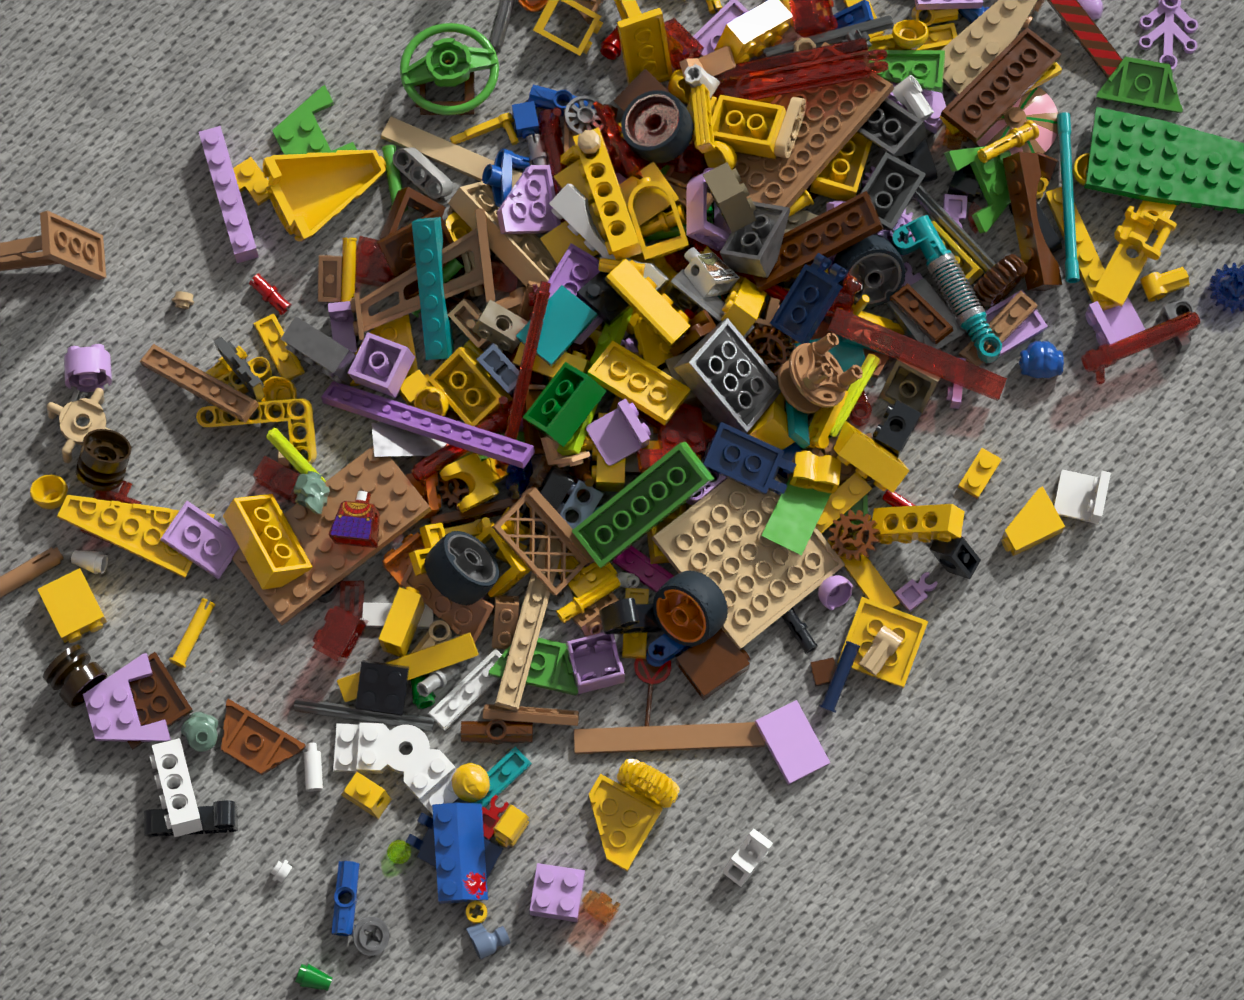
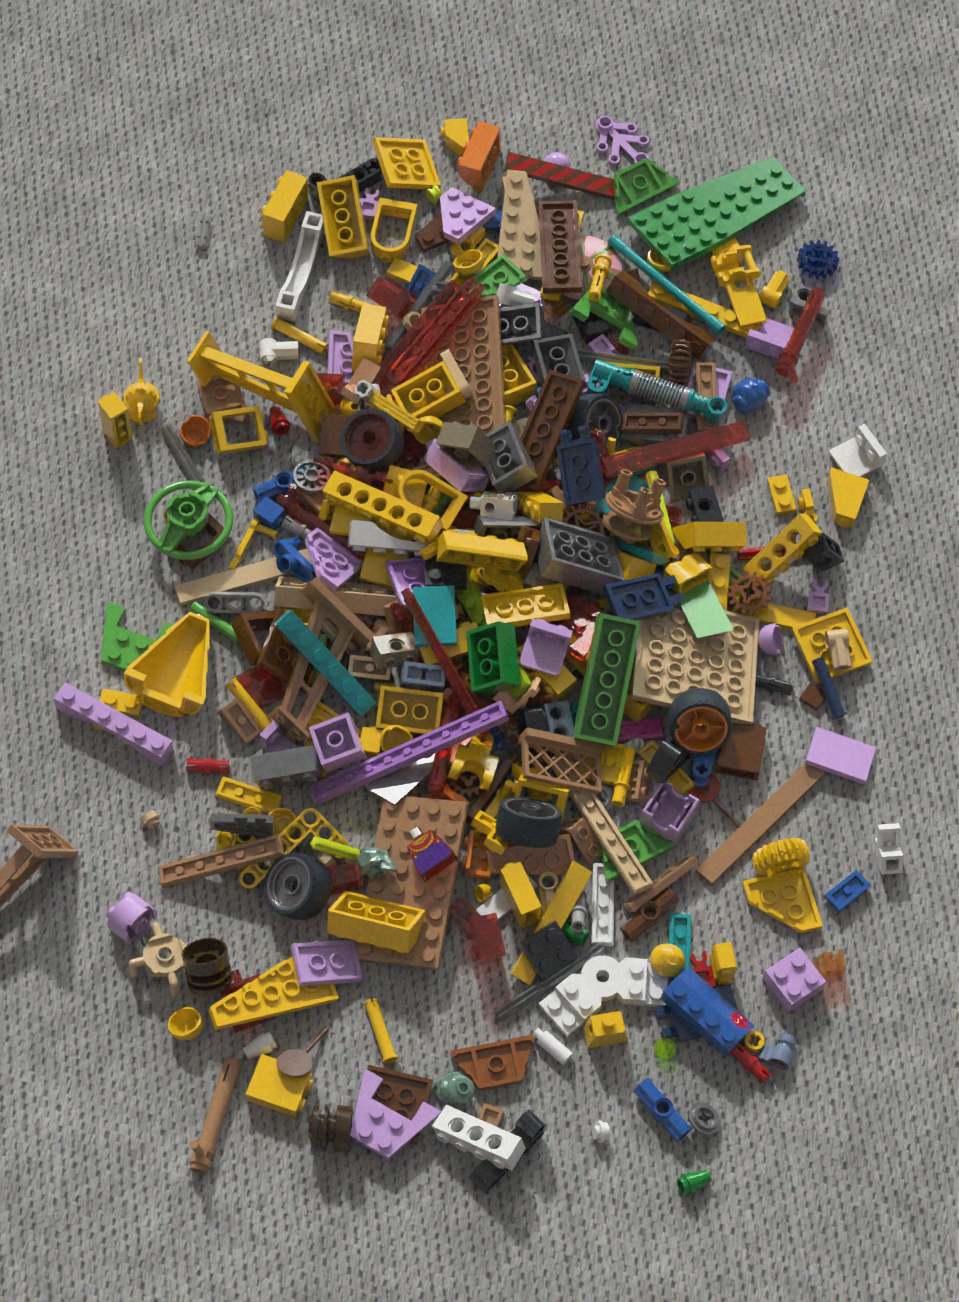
camera: 45 degrees left, 10 degrees down
(99, 598) = (297, 1062): none -> piece
(209, 779) = (491, 1114): none -> medium nougat tile
(235, 457) = (297, 886): none -> wheel
(382, 593) = (482, 892): none -> yellow hinge
(454, 927) = (750, 1063): none -> red pin
(589, 141) = (339, 483): tan tile -> none
(679, 860) = (847, 891): none -> blue plate
(989, 498) = (806, 504): none -> yellow plate

